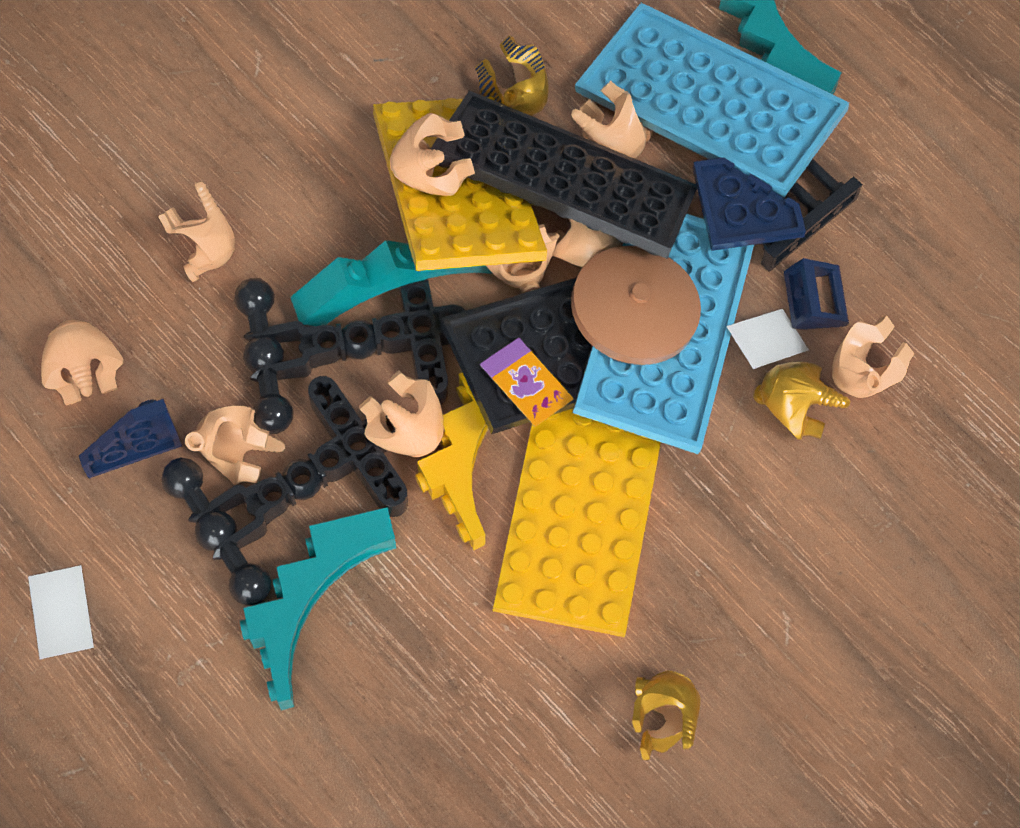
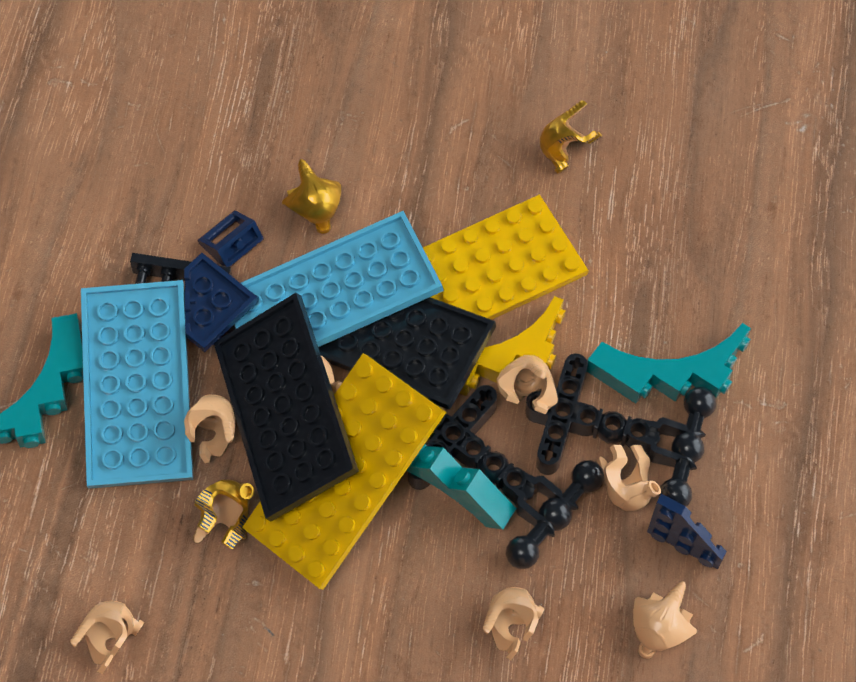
camera: 130 degrees left, 5 degrees down
(60, 612) = (811, 504): white sticker -> none
(415, 162) = (362, 478): light nougat piece -> none
(526, 382) = (445, 330): sticker -> none
(635, 305) = (344, 305): nougat dish -> none
(767, 338) = (287, 239): white sticker -> none
(850, 366) = (265, 180): light nougat piece -> none

